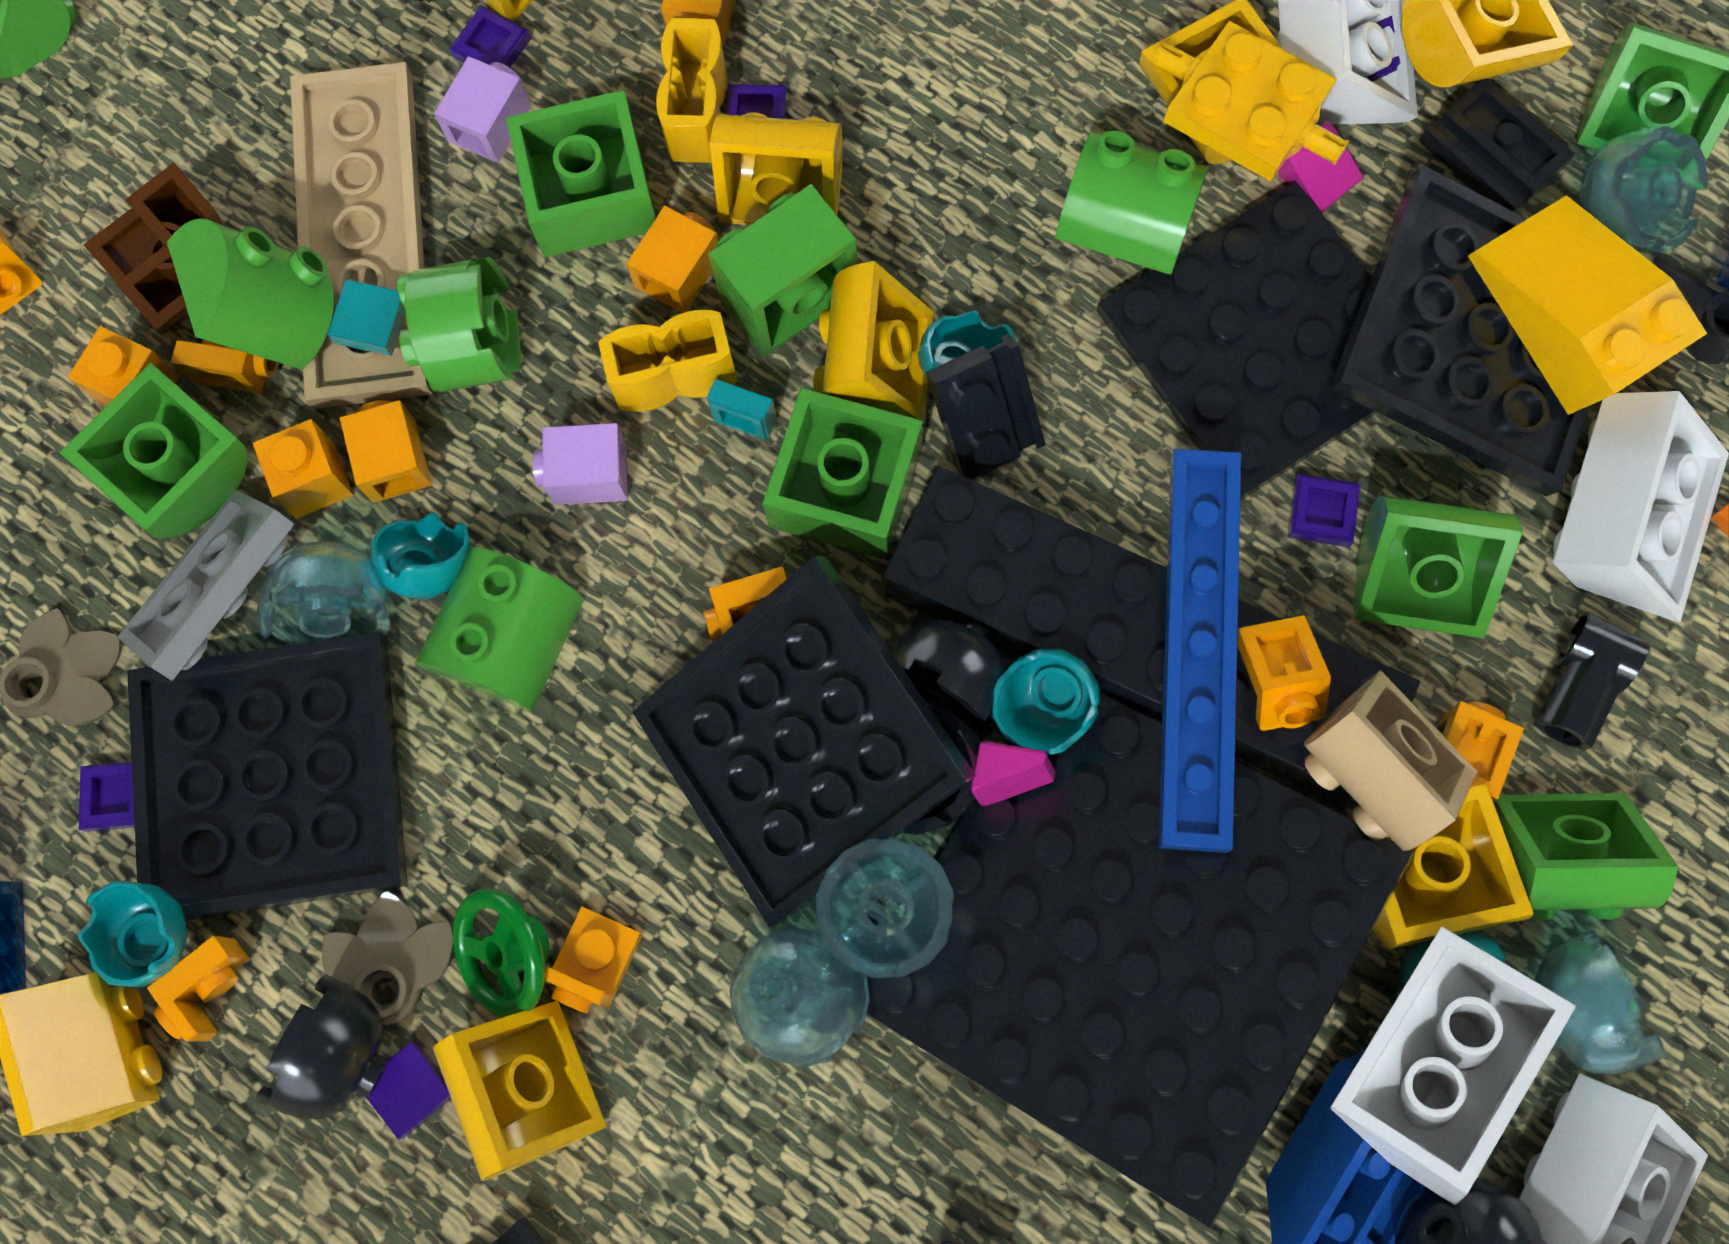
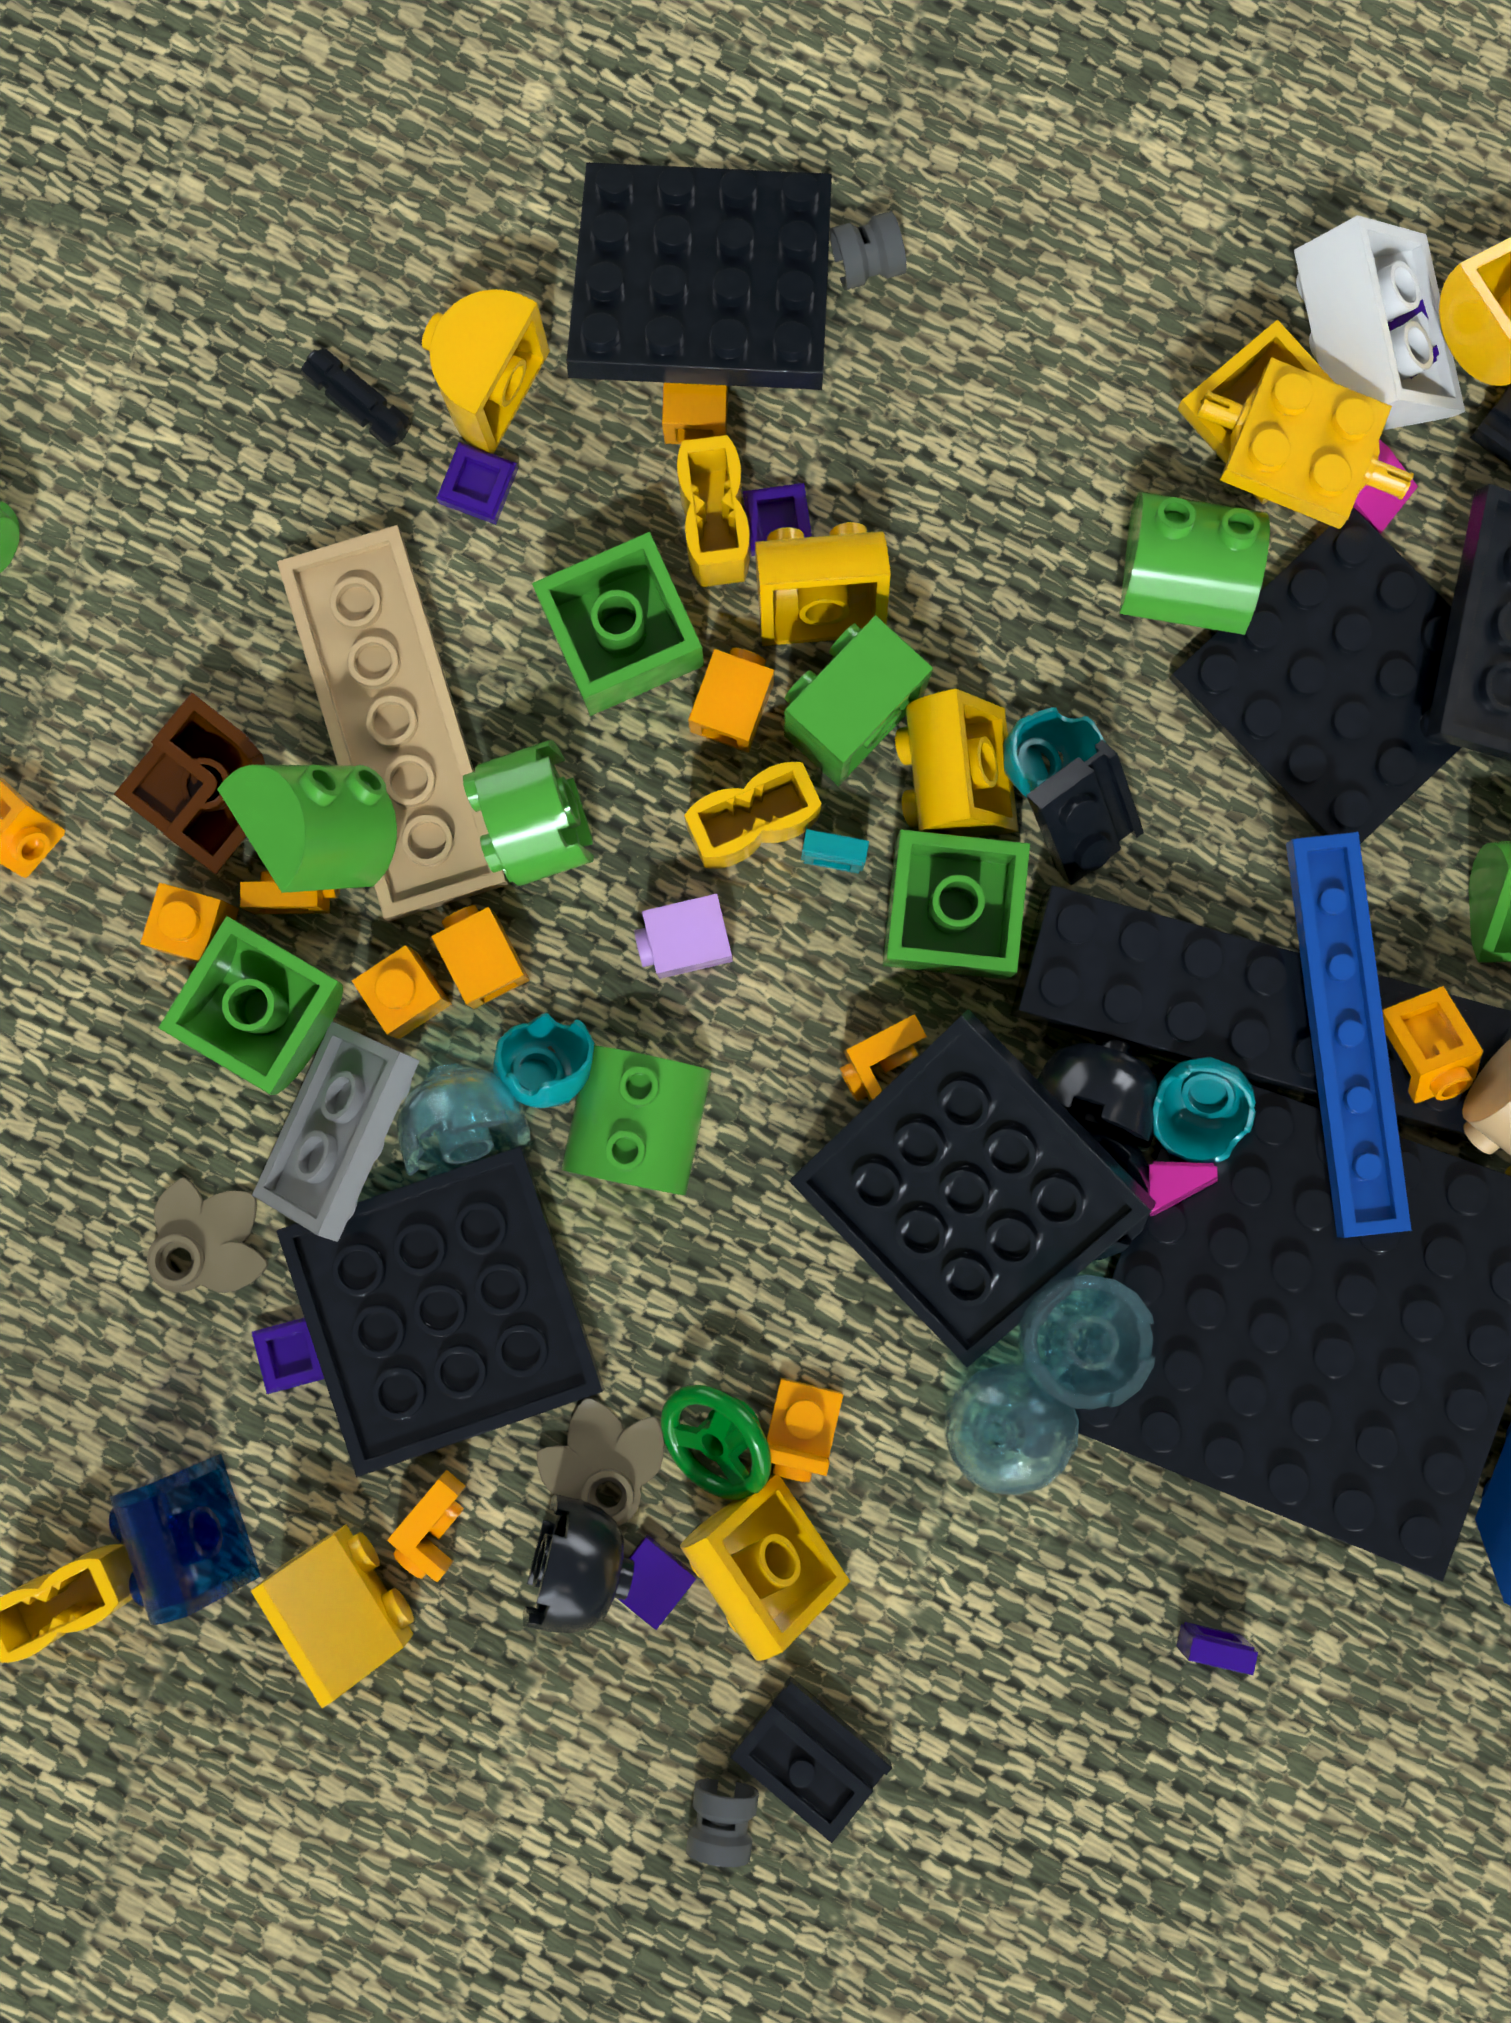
camera: 15 degrees left, 10 degrees up
(133, 933) = (363, 1493): teal hair -> none
(367, 318) = (431, 821): teal tile -> none
(478, 105) = (493, 563): lavender brick -> none
(1323, 510) = (1430, 854): dark purple tile -> none

